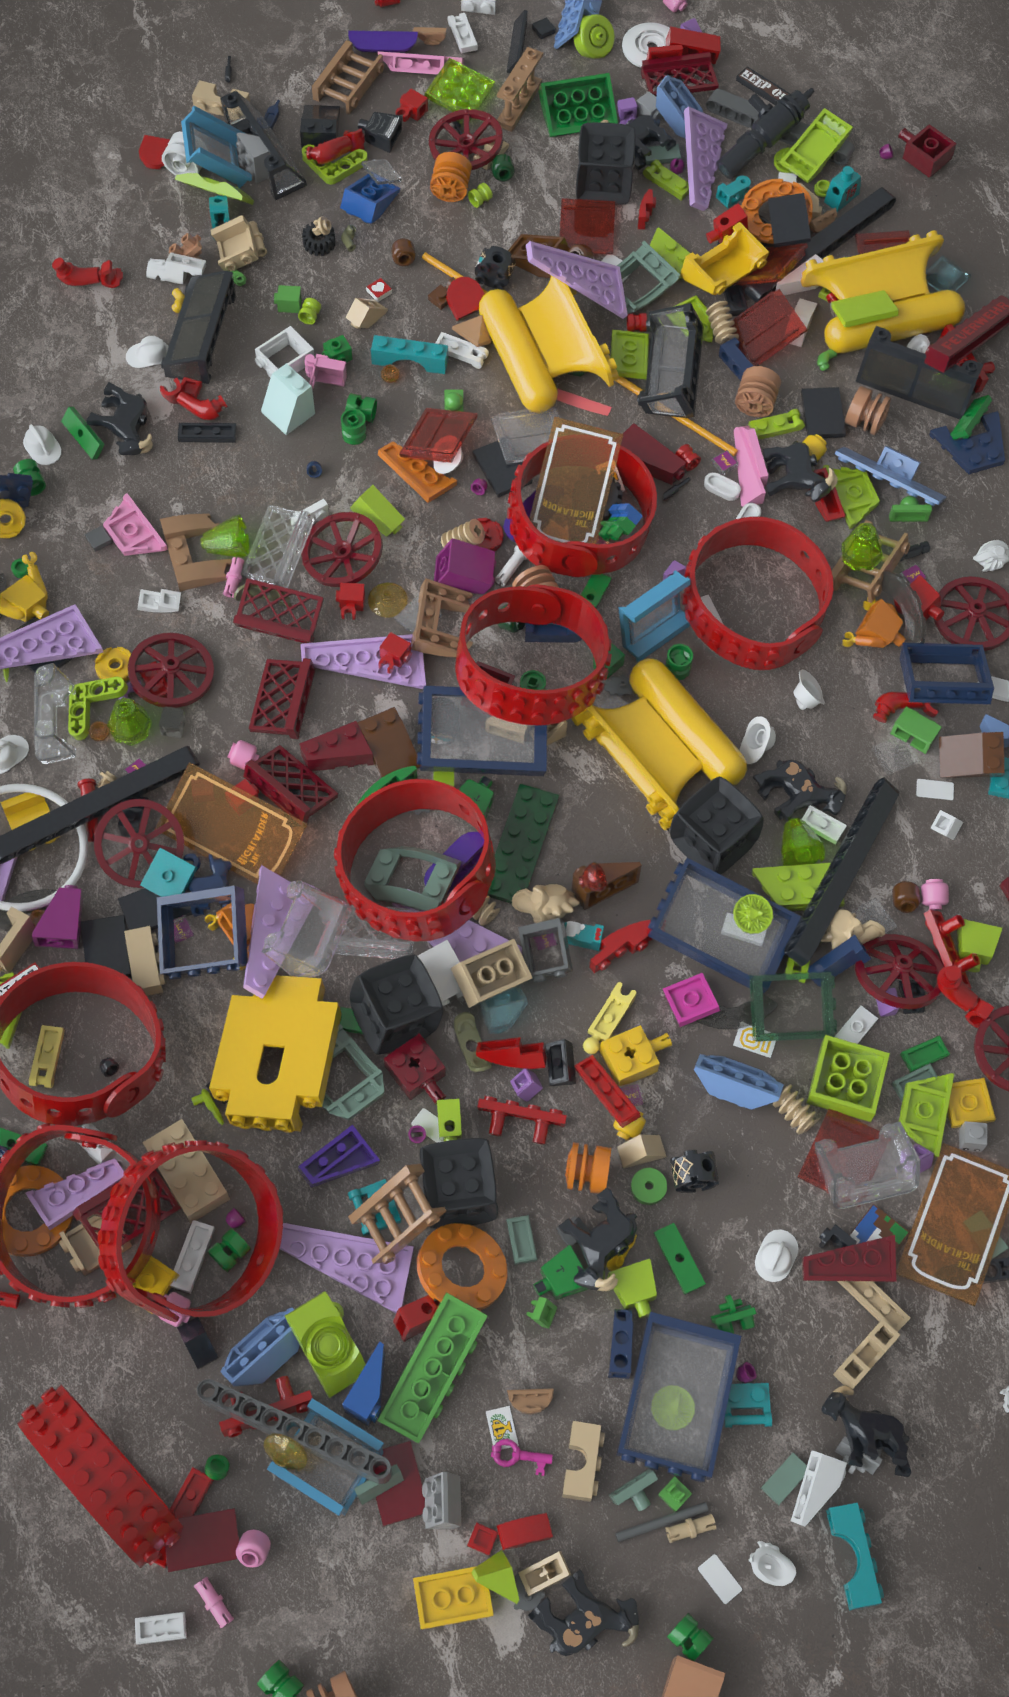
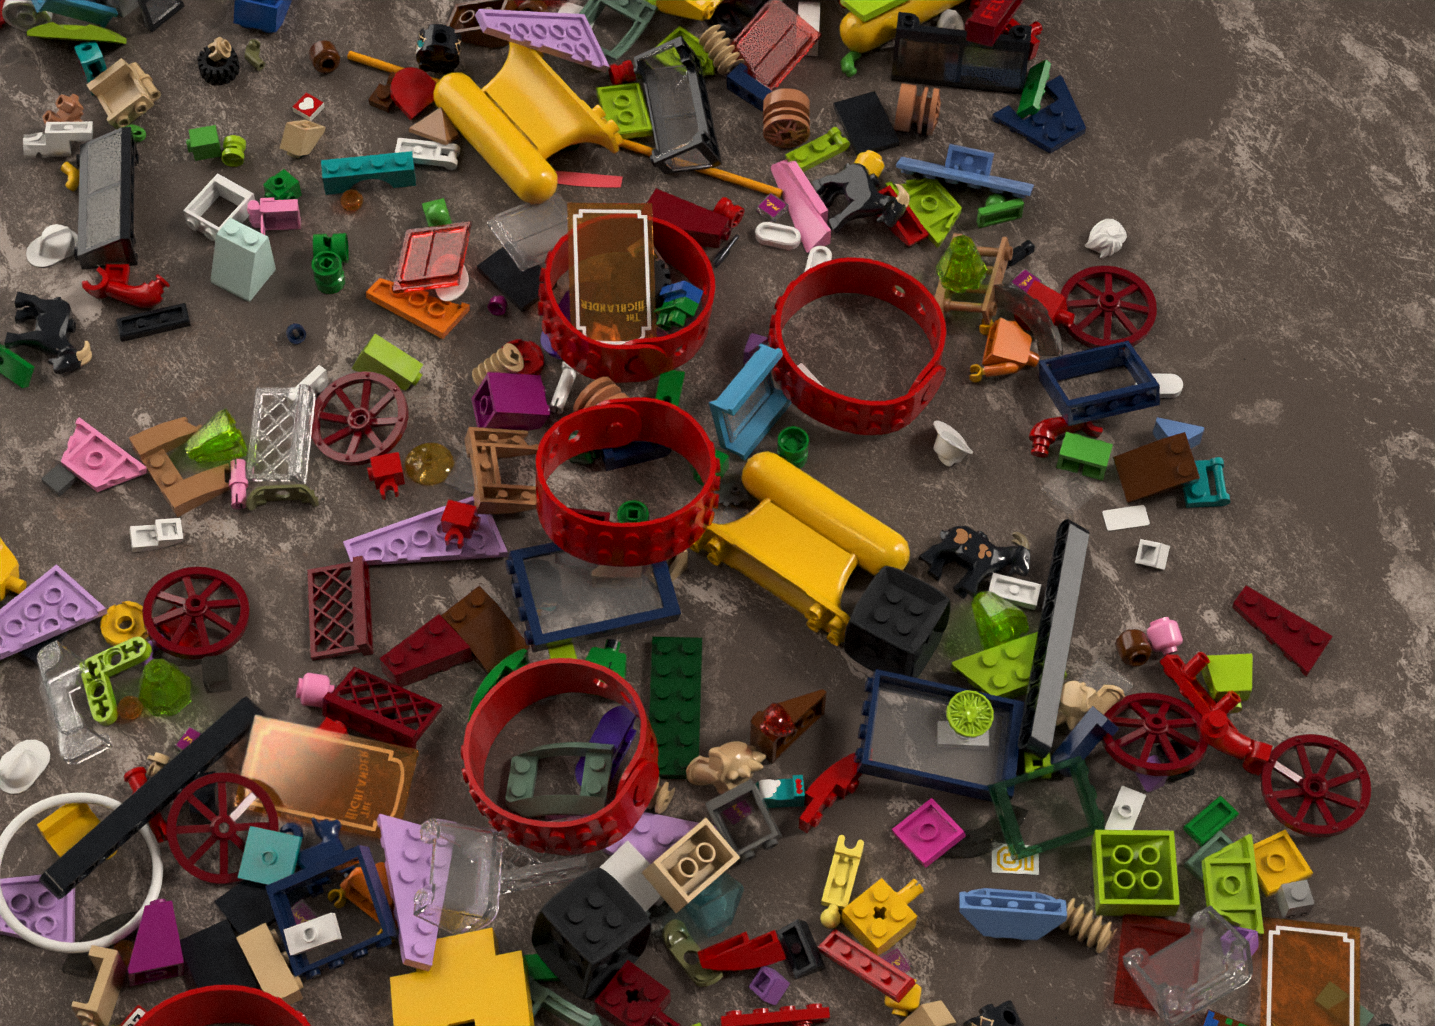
camera: 15 degrees left, 5 degrees down
(181, 945) = (312, 934): none -> white plate
(273, 628) = (300, 530): dark red fence -> none
(757, 739) = (910, 513): white piece -> none

